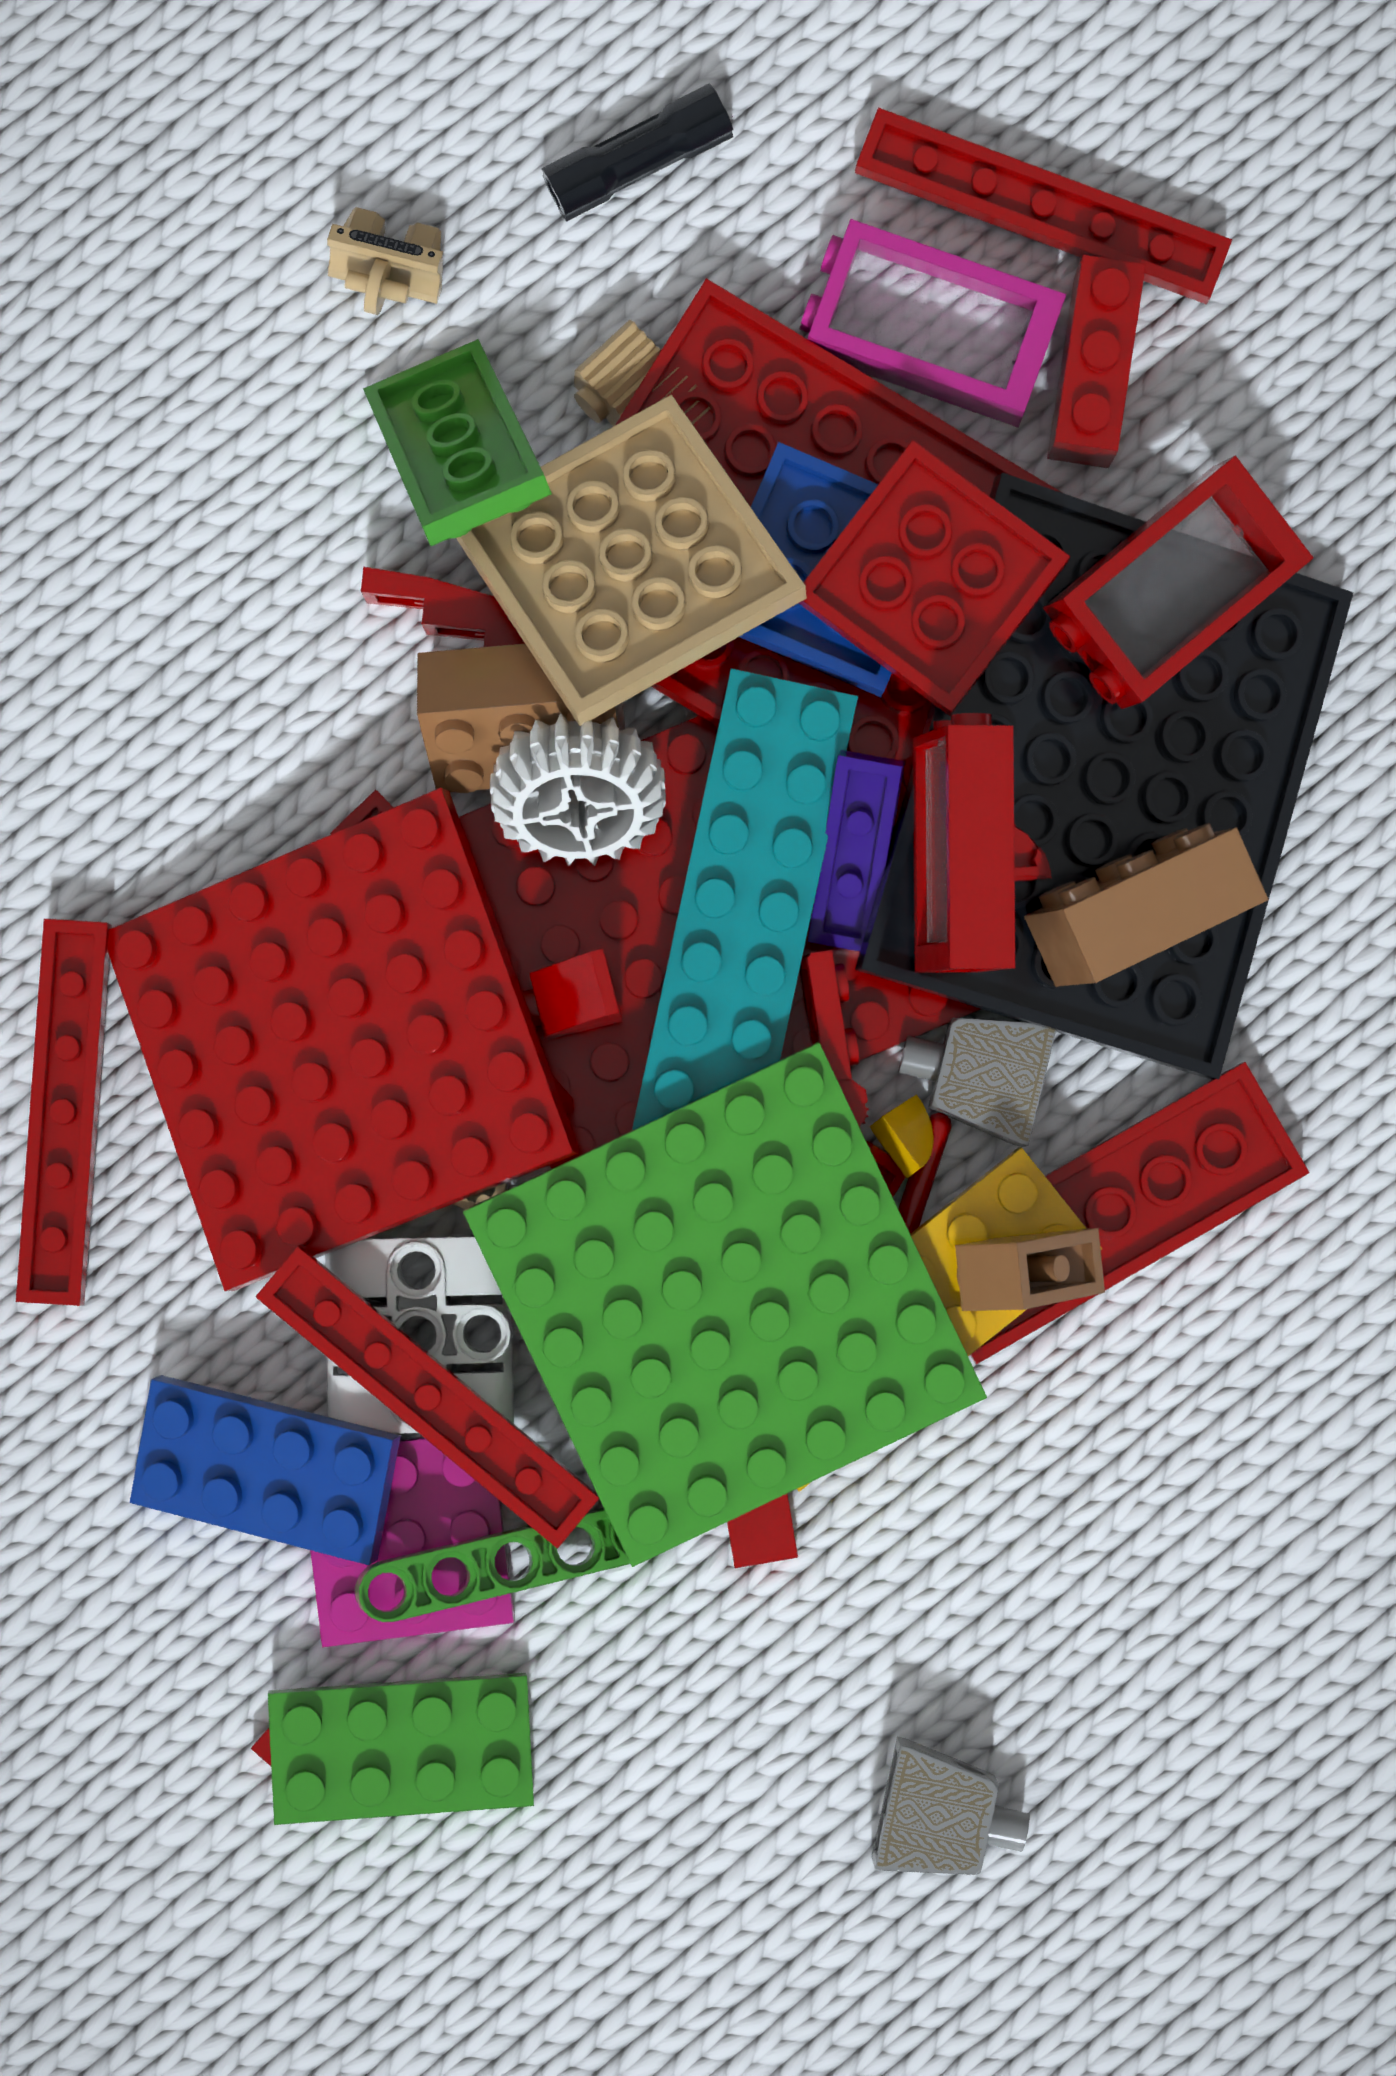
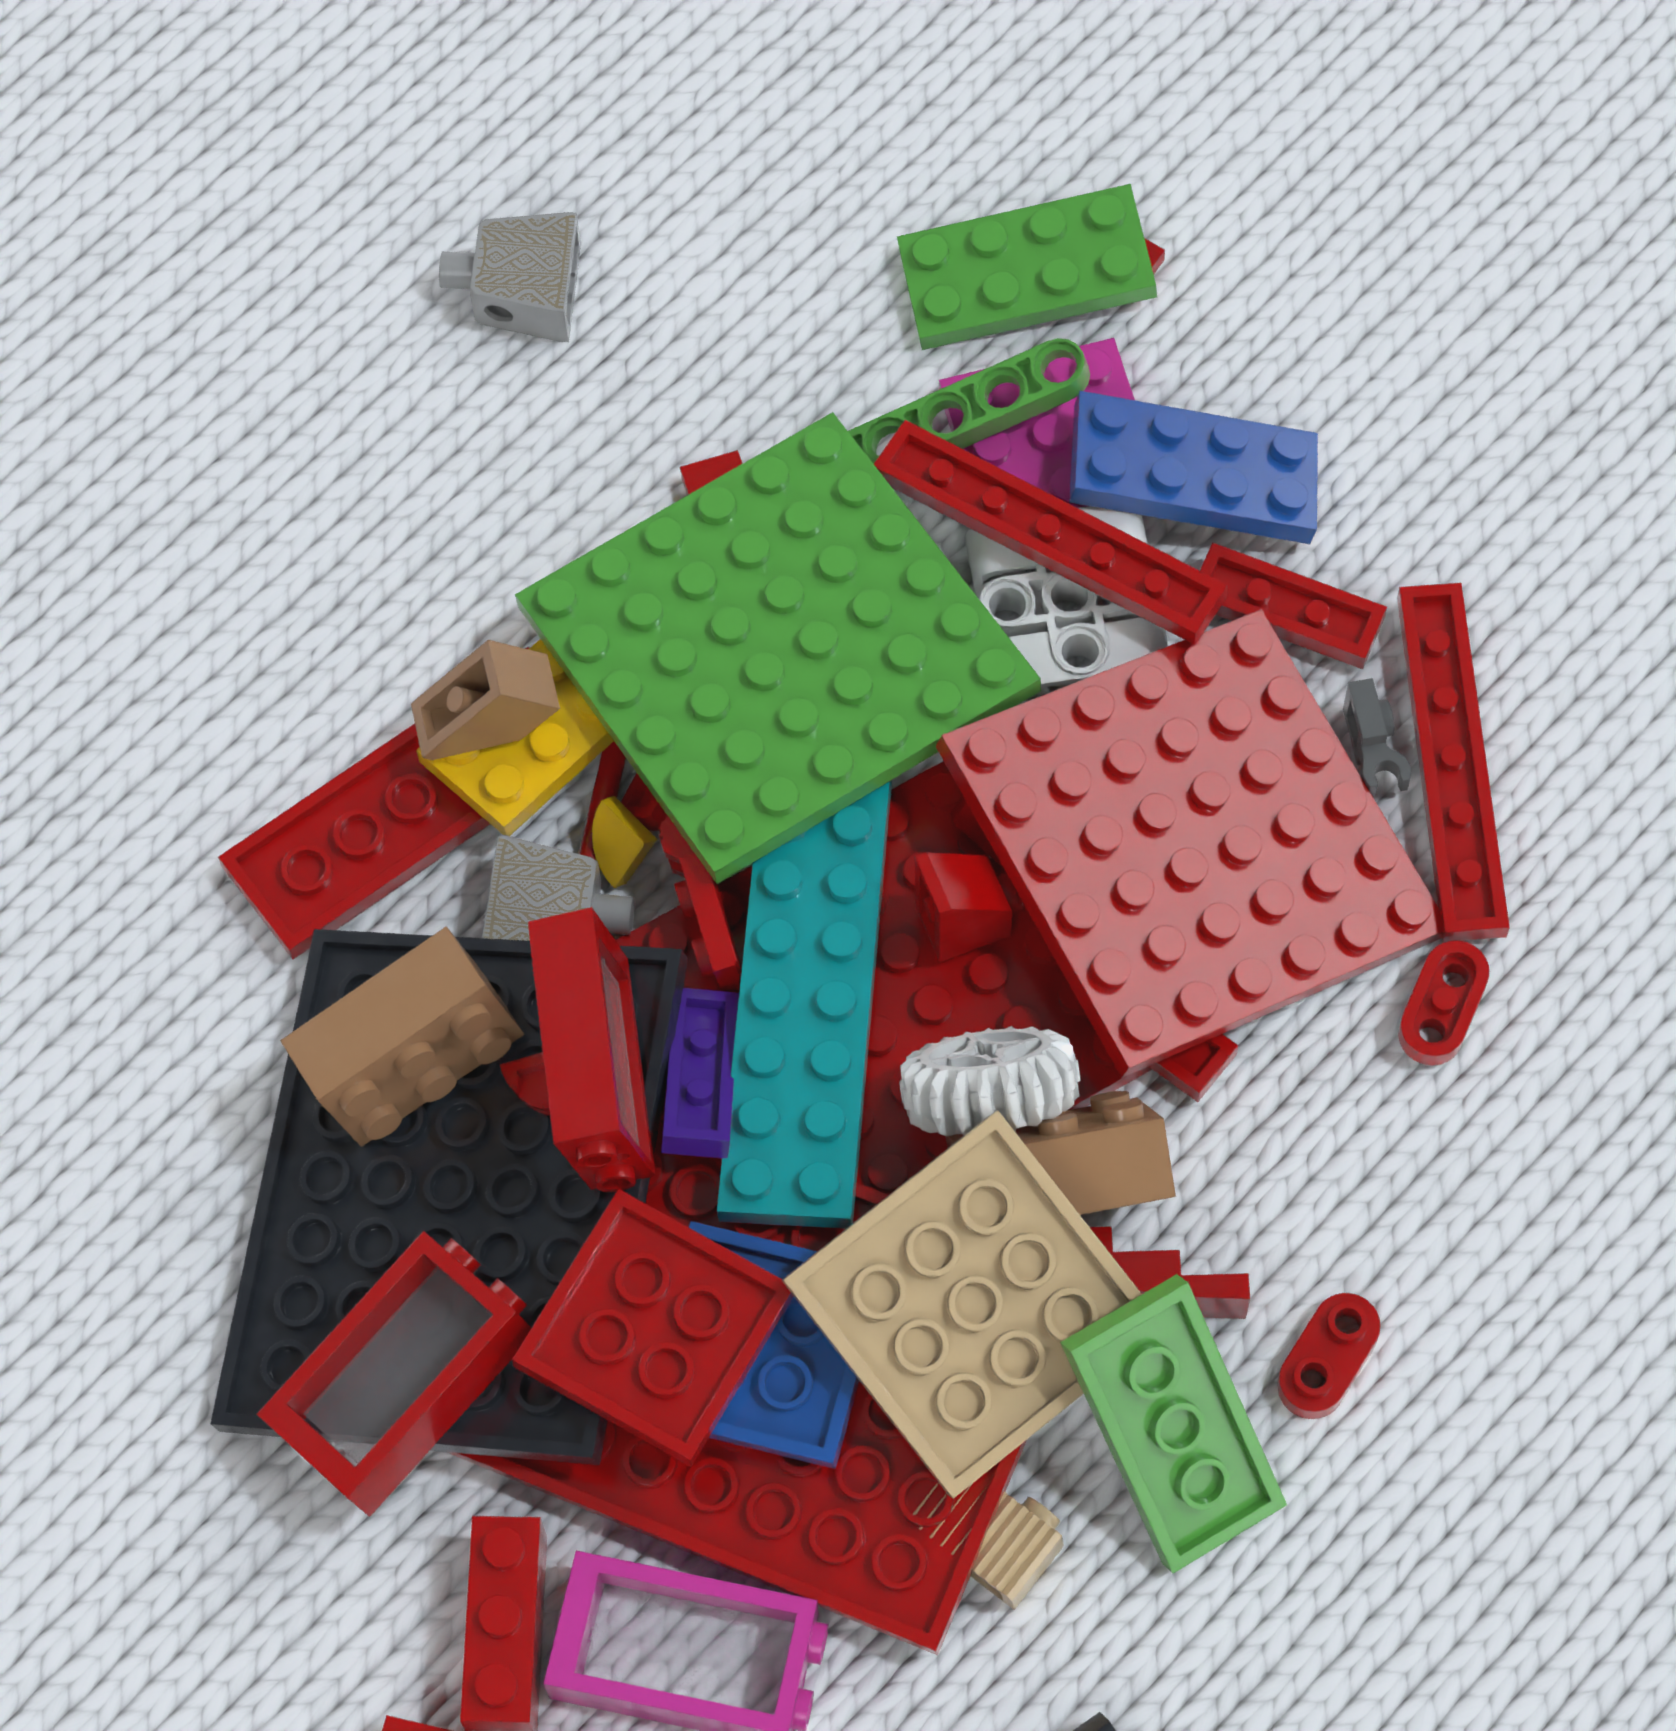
camera: 175 degrees right, 20 degrees down
(118, 853) = (1443, 1006): none -> red plate
(139, 1158) = (1369, 725): none -> dark grey plate
(196, 1306) = (1297, 606): none -> red plate
(303, 528) = (1329, 1352): none -> red plate
(383, 265) = (1317, 1644): tan hips -> none

